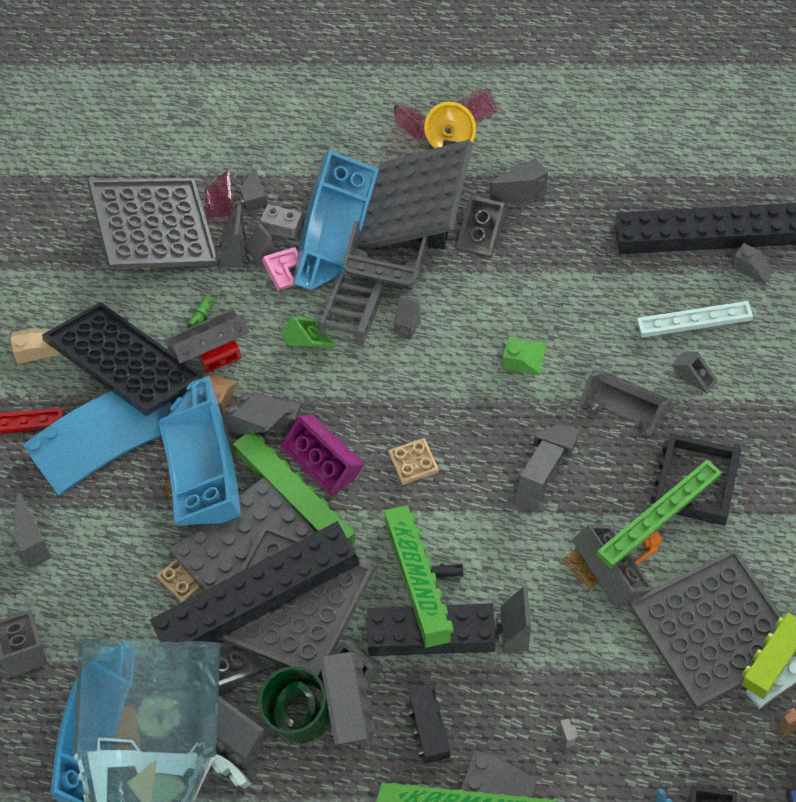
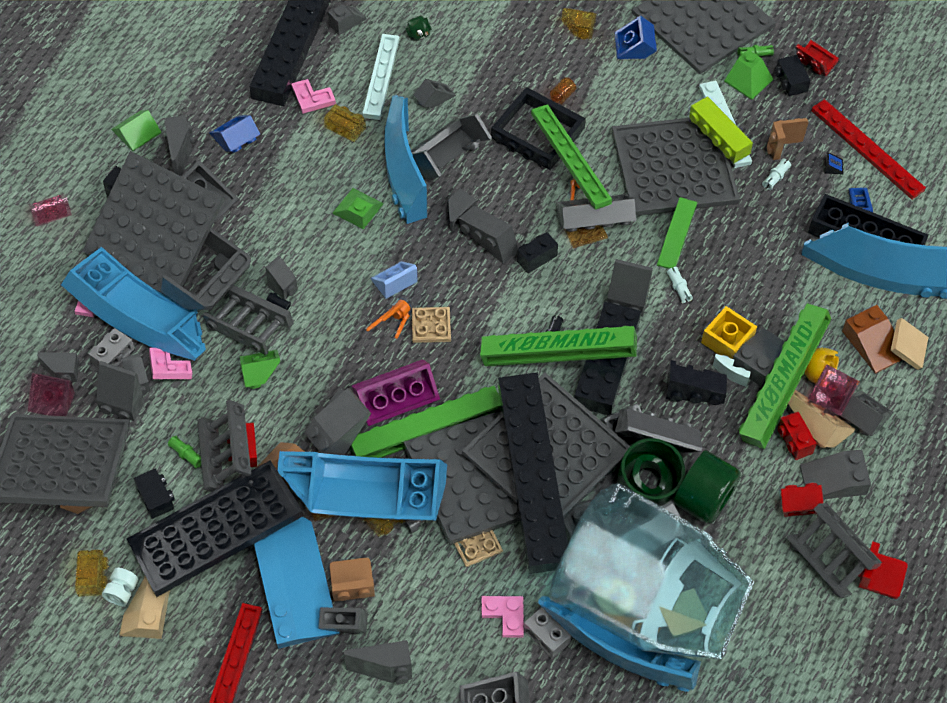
camera: 75 degrees left, 0 degrees up
(50, 313) = (119, 589): none -> light aqua wheel
(60, 289) = (90, 573): none -> clear yellow brick
(64, 491) = (343, 620): none -> dark grey slope
(110, 485) = (351, 579): none -> medium nougat bracket
(120, 625) = (509, 609): none -> bright pink plate
(148, 304) = (154, 493): none -> black brick
(296, 763) = (707, 487): none -> dark green piece
(385, 328) = (273, 298): none -> black pin
(415, 427) = (398, 311): none -> orange plant
(450, 116) = (78, 179): yellow dish -> none
(451, 411) = (395, 278): none -> light blue slope
(465, 753) = (724, 365): none -> light aqua slope
(479, 104) = (57, 155): clear pink slope -> none
(506, 738) = (728, 333): none -> yellow brick
(528, 148) = (137, 129): none -> bright green slope
(534, 525) = (537, 252): none -> black brick
(556, 676) = (679, 284): none -> light aqua pin
(561, 225) = (236, 133): none -> slope
(568, 732) = (733, 292): light grey plate -> none
(608, 358) = (403, 174): none -> dark azure slope
(619, 307) = (345, 122): none -> clear yellow brick
(619, 653) = (677, 233): none -> bright green slope
(635, 268) = (310, 100): none -> bright pink plate
(755, 739) = (776, 174): none -> light aqua pin
(759, 487) = (562, 90): none -> clear orange brick
(774, 330) = (418, 28): none -> dark green head

